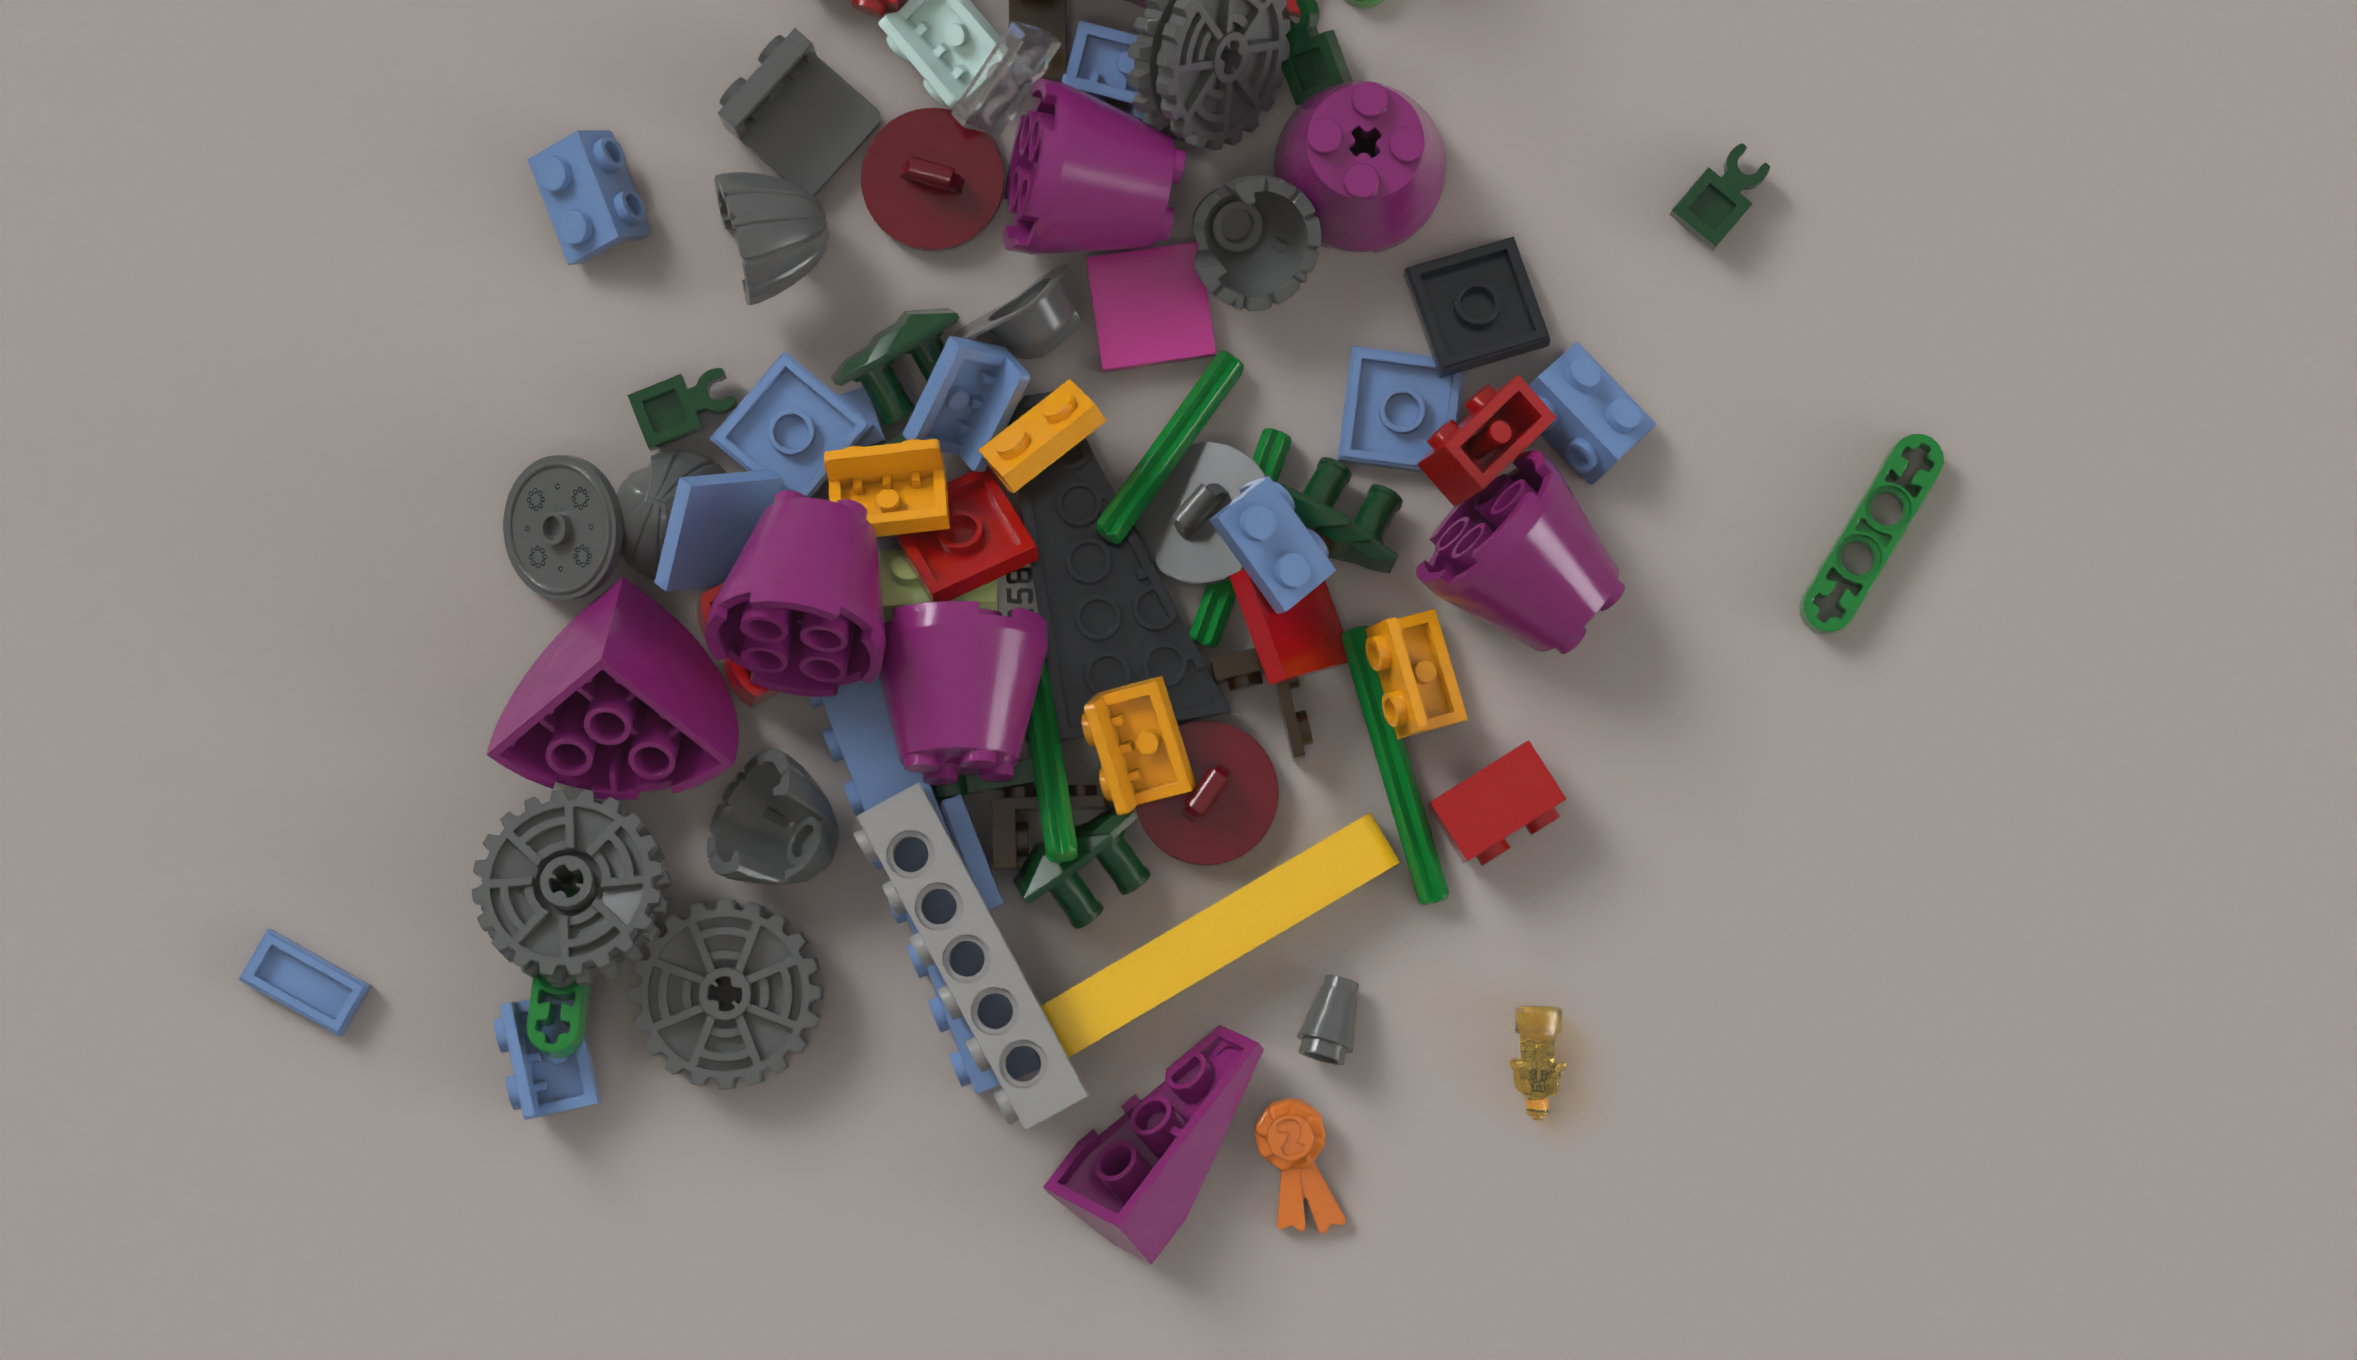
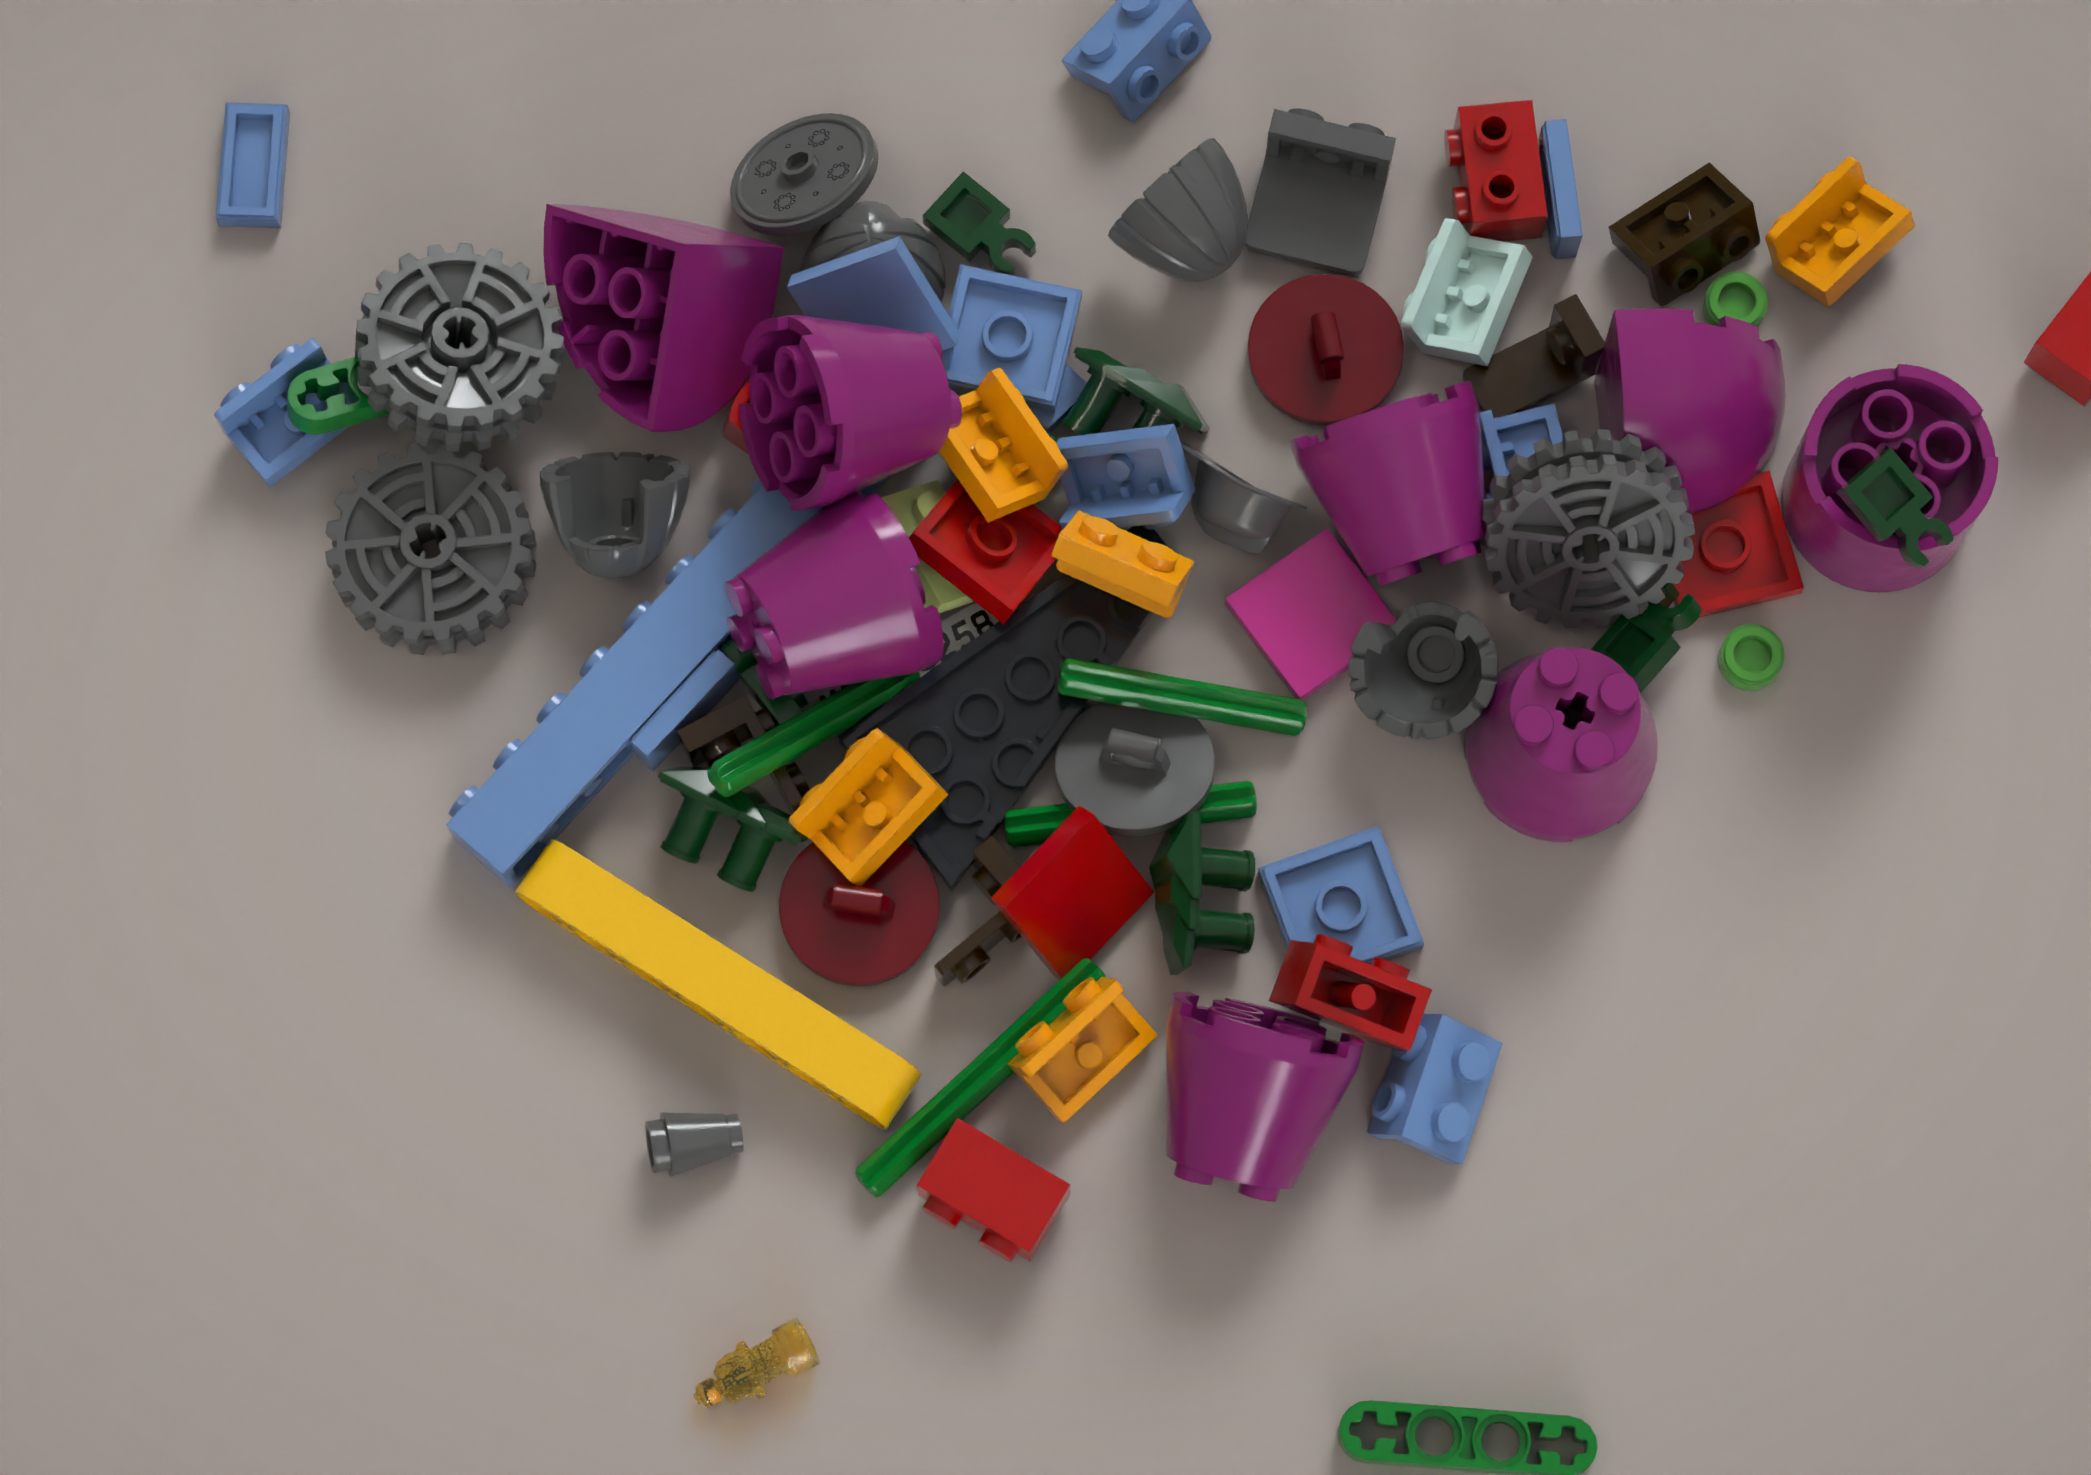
camera: 65 degrees right, 10 degrees down
(914, 816) = (497, 888): light grey brick -> none
(1006, 78) = (1446, 356): clear plate -> none
(1151, 1162) = (458, 1034): magenta wedge -> none
(1273, 543) = (1132, 829): medium blue bracket -> none
(1291, 1138) = (554, 1160): orange piece -> none
(1476, 307) = (1482, 926): black plate -> none
(1716, 202) = (1715, 1111): dark green plate -> none

